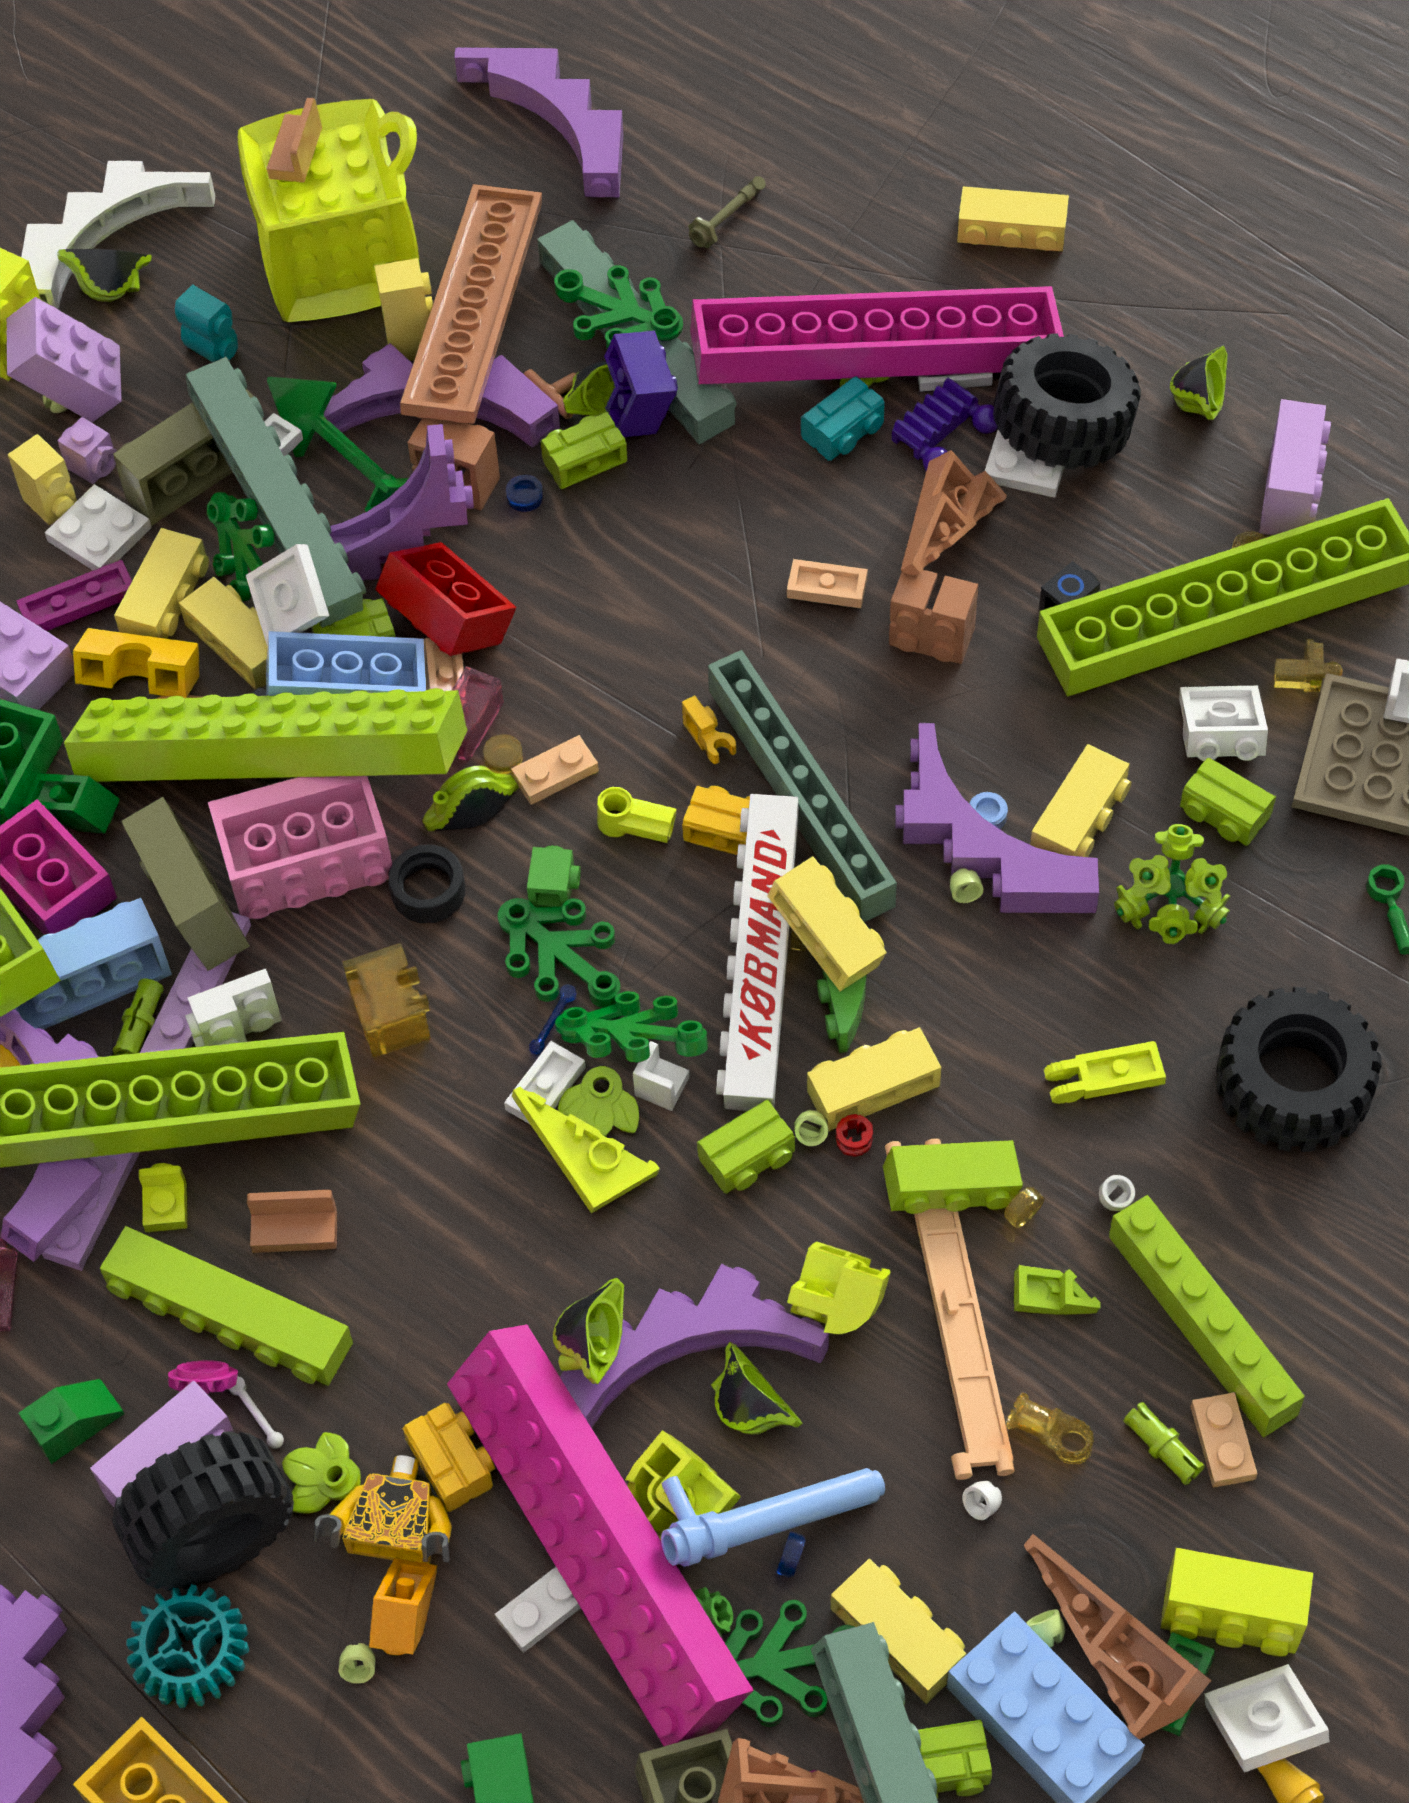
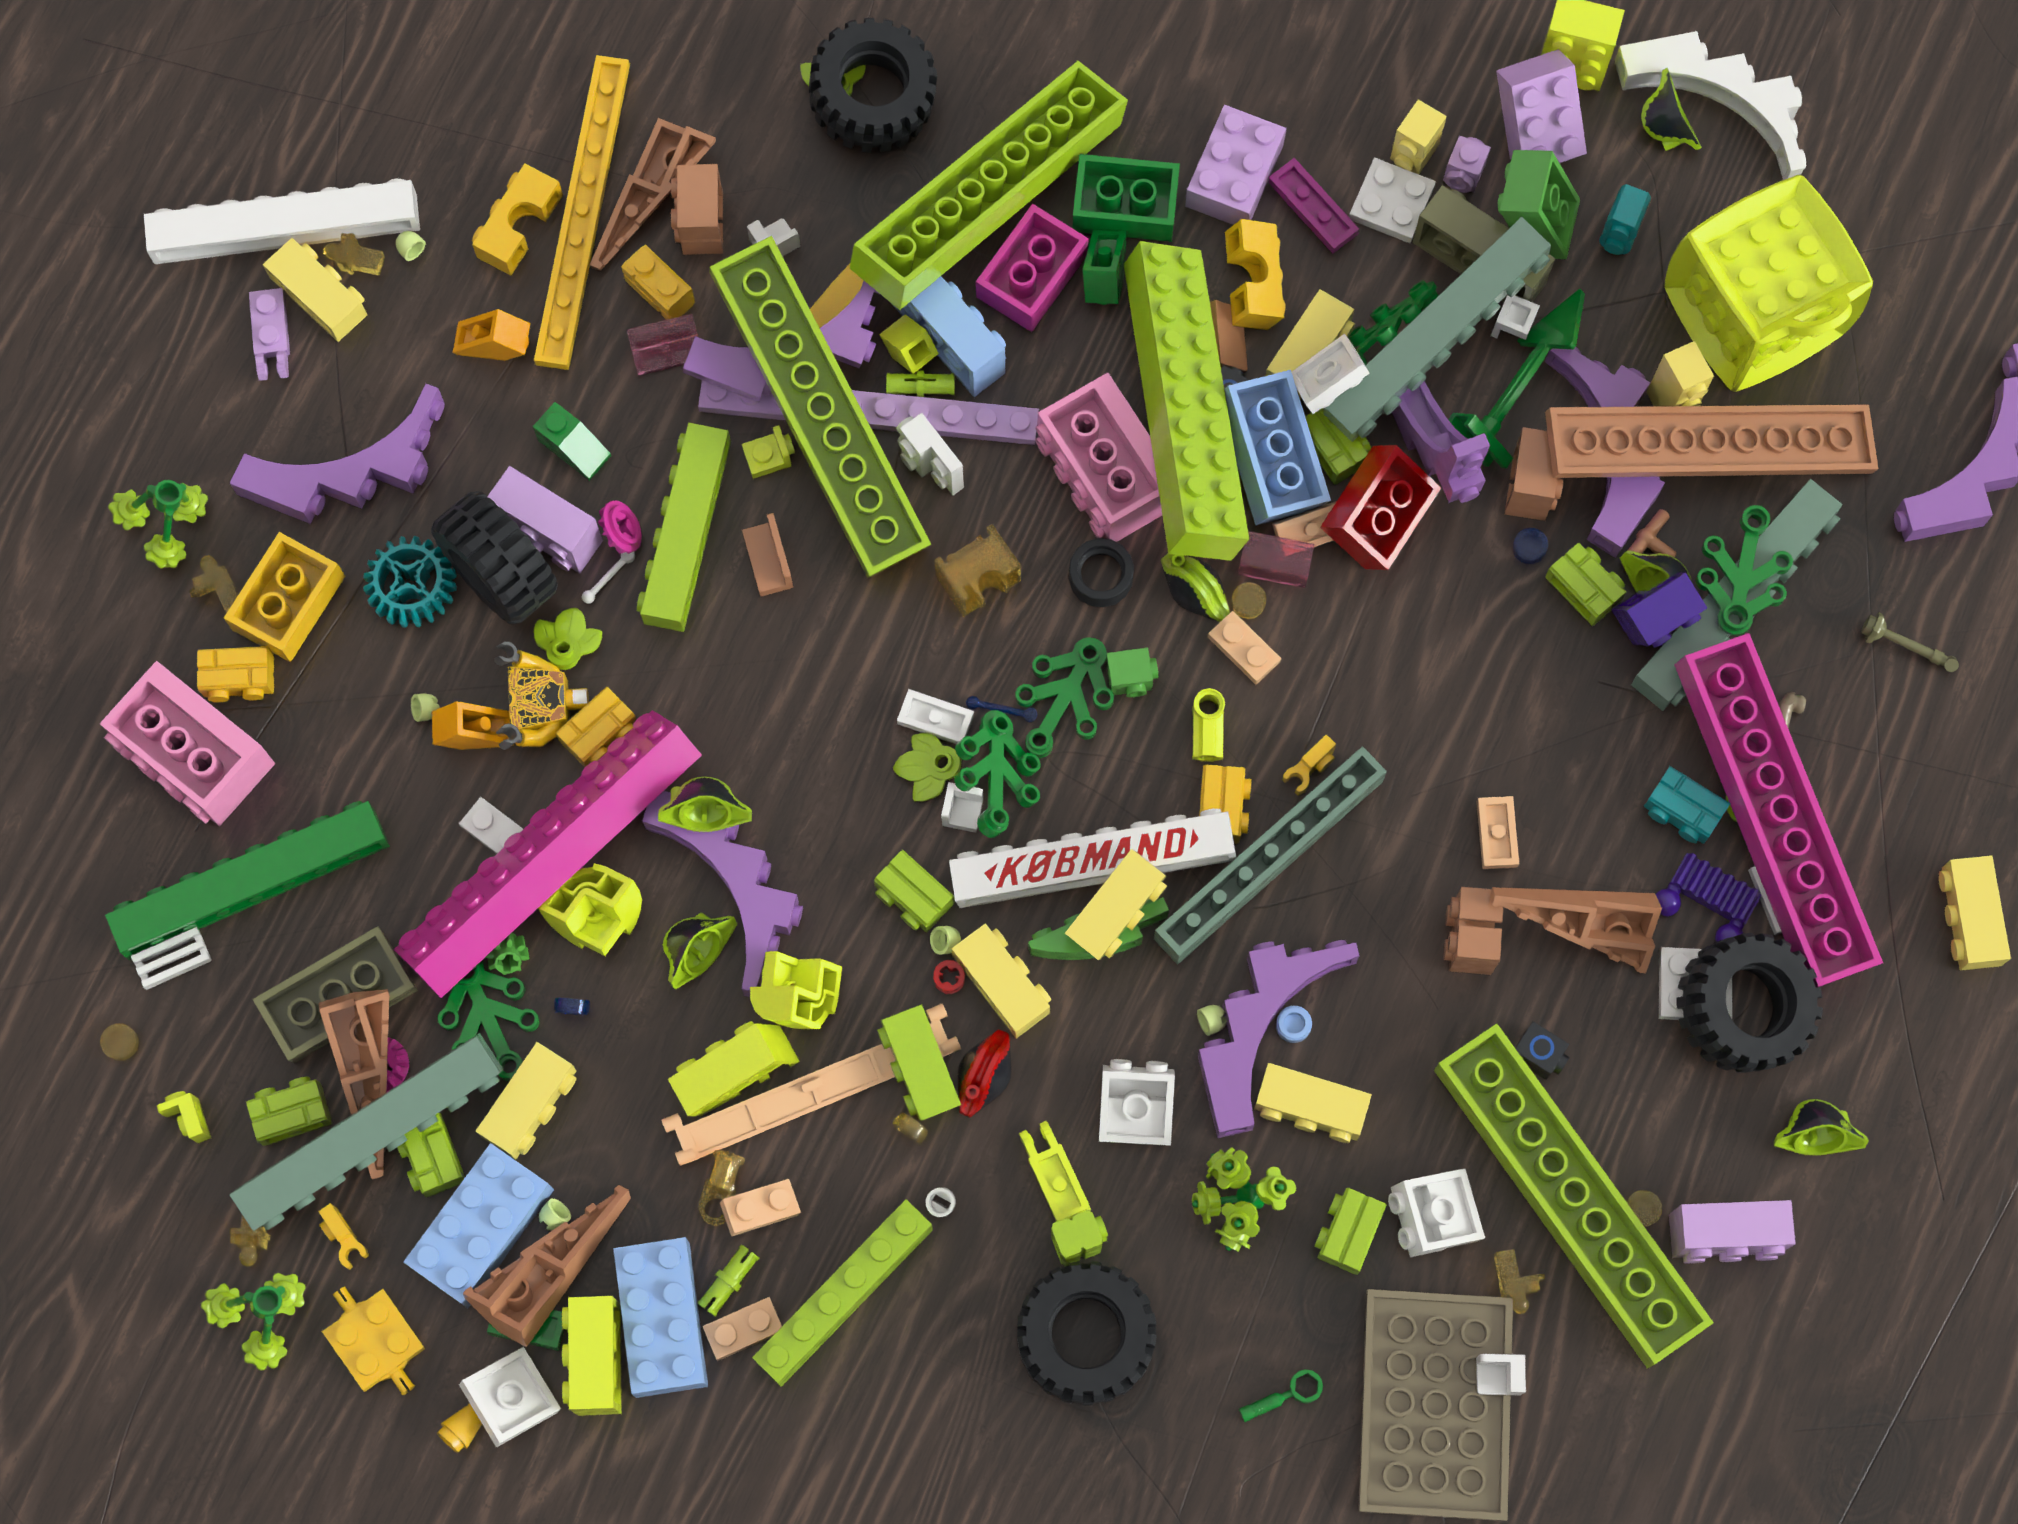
camera: 75 degrees right, 15 degrees up
(88, 1014) = (909, 344): none -> neon yellow brick
(150, 376) = (1542, 196): none -> bright green brick
(160, 584) = (1340, 271): light yellow brick -> none
(185, 884) = (1035, 377): olive brick -> none
(295, 144) = (1785, 229): nougat panel -> none
(592, 1163) = (874, 770): neon yellow wing -> none
(713, 1533) = (556, 939): light blue cylinder -> none
(913, 1382) = (731, 1067): none -> neon yellow wedge
(969, 1116) = (984, 1073): none -> red hat
(974, 1496) = (649, 1144): white hinge -> none
(1044, 971) = (1136, 1103): none -> white plate
(1050, 1292) = (843, 1165): lime slope -> none
(1085, 1387) = (760, 1207): none -> light nougat plate
(1190, 1053) = (1078, 1237): none -> lime brick
(1195, 1511) = (660, 1317): none -> light blue brick

